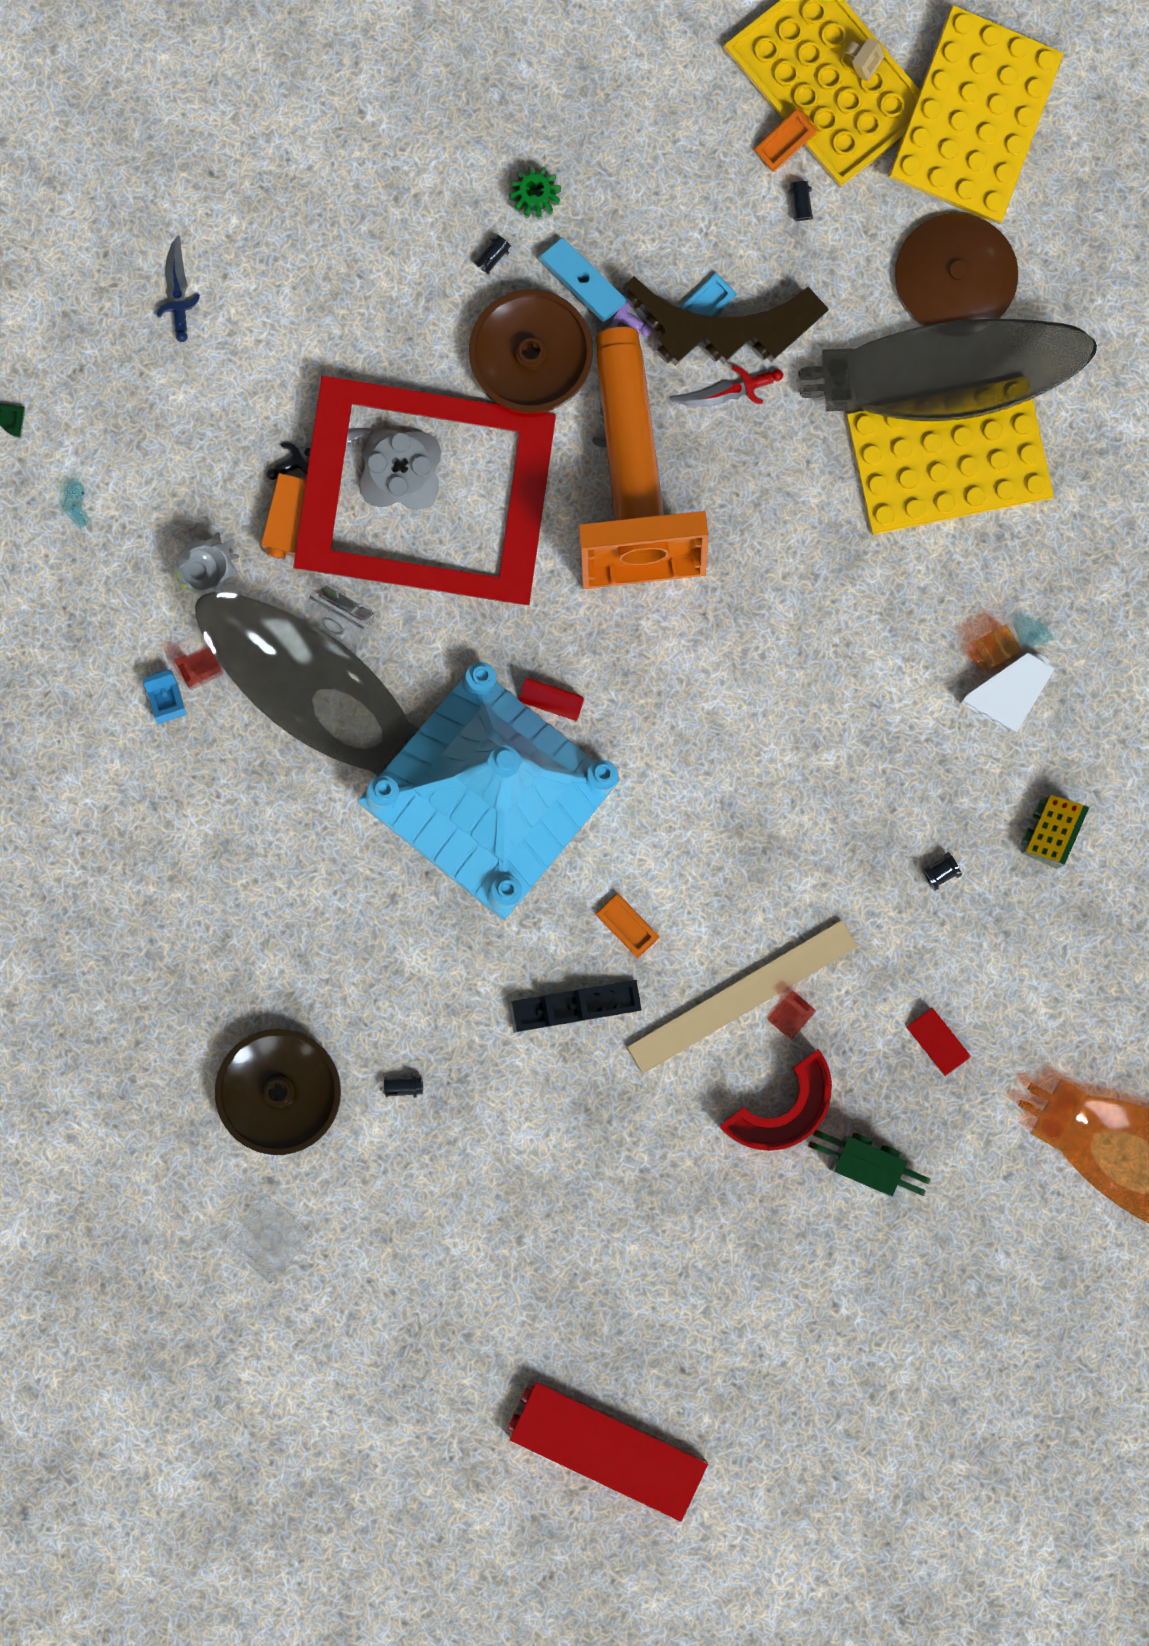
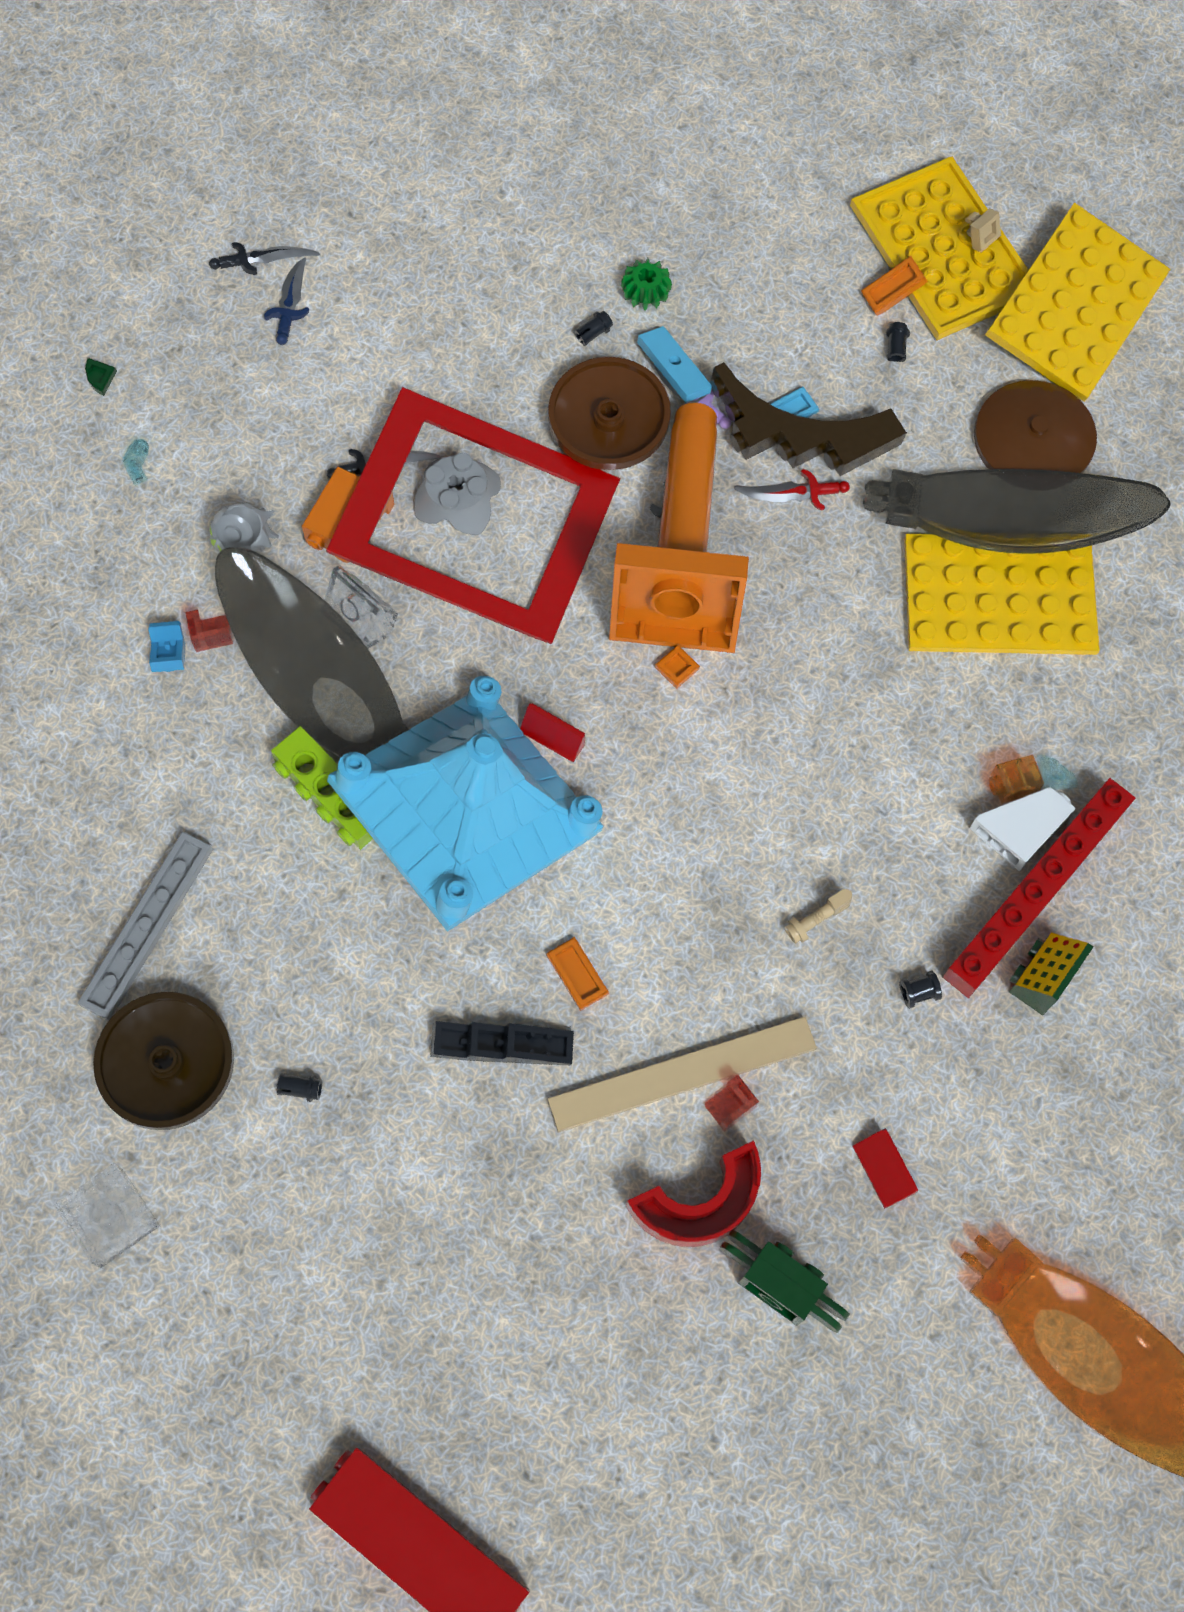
camera: 15 degrees right, 15 degrees down
(133, 244) = (263, 256): none -> piece
(223, 970) = (145, 926): none -> light grey plate
(310, 781) = (302, 749): none -> lime brick
(654, 603) = (677, 666): none -> orange tile
(820, 839) = (836, 904): none -> tan hinge
(1034, 750) = (1038, 888): none -> red brick

